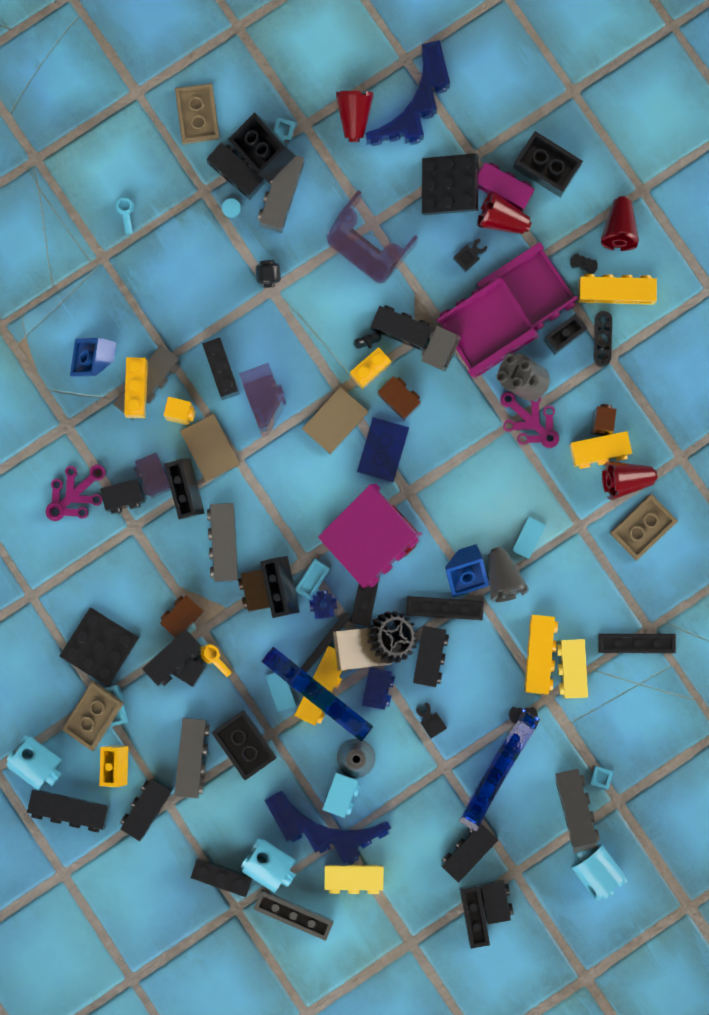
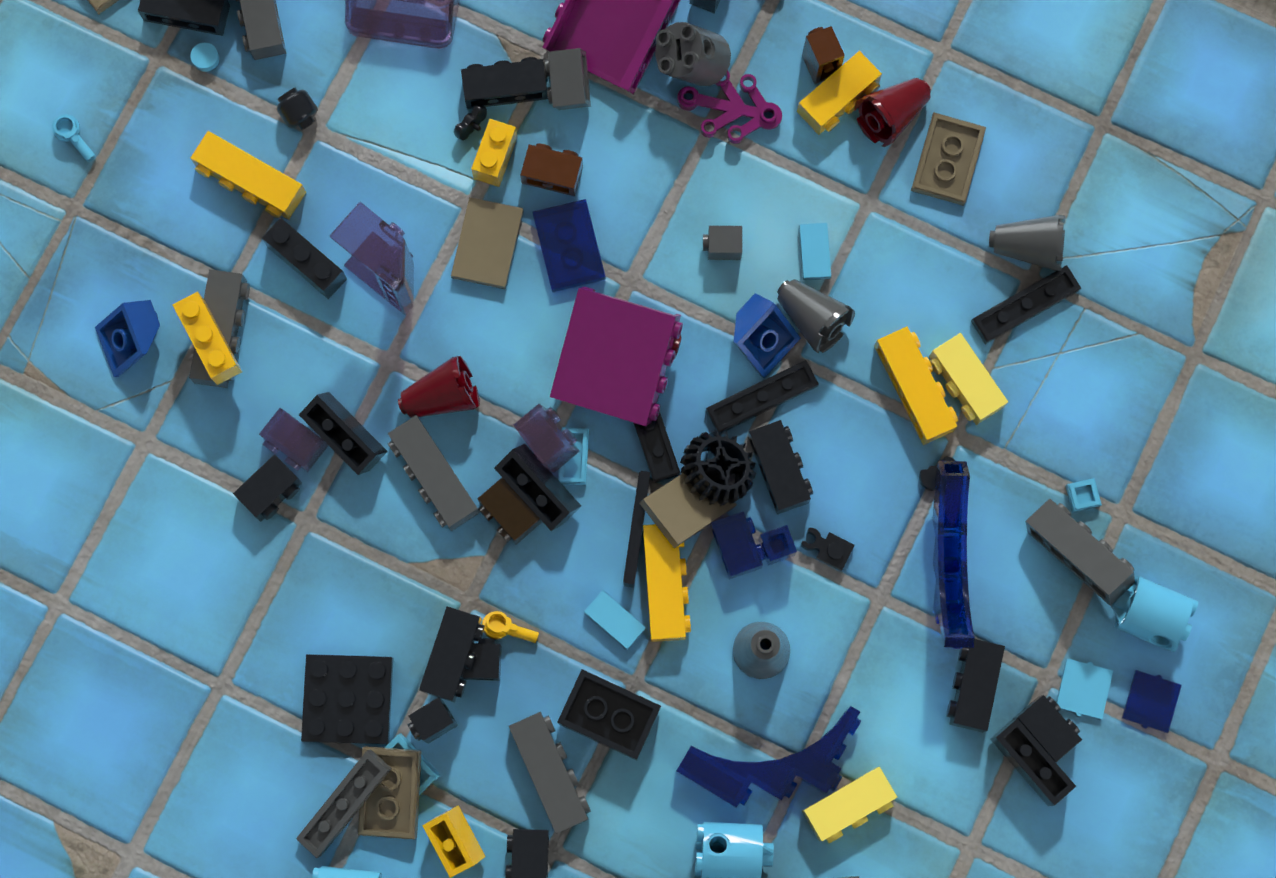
camera: 30 degrees left, 5 degrees down
(63, 707) = (343, 803): none -> dark grey plate
(73, 495) = (203, 523): magenta plant -> none
(139, 689) = (431, 721): none -> black brick
(179, 411) = (280, 338): yellow brick -> none
(181, 616) = (432, 596): reddish brown brick -> none
(210, 448) = (347, 366): dark tan tile -> none
(215, 297) = (248, 175): none -> yellow brick
(256, 496) = (441, 391): none -> dark red cone
(302, 560) = (546, 437): none -> clear purple brick
(317, 694) = (665, 592): clear blue arch -> none
(328, 611) = (608, 489): clear blue brick -> none
(340, 795) = (771, 705): medium azure brick -> none
(400, 702) = (777, 545): none -> clear blue brick
(476, 501) = (723, 242): none -> dark grey brick
(532, 891) = (1084, 689): none -> medium azure piece
(567, 921) = (1151, 701): none -> clear blue piece
(662, 608) = (1031, 241): none -> dark grey cone

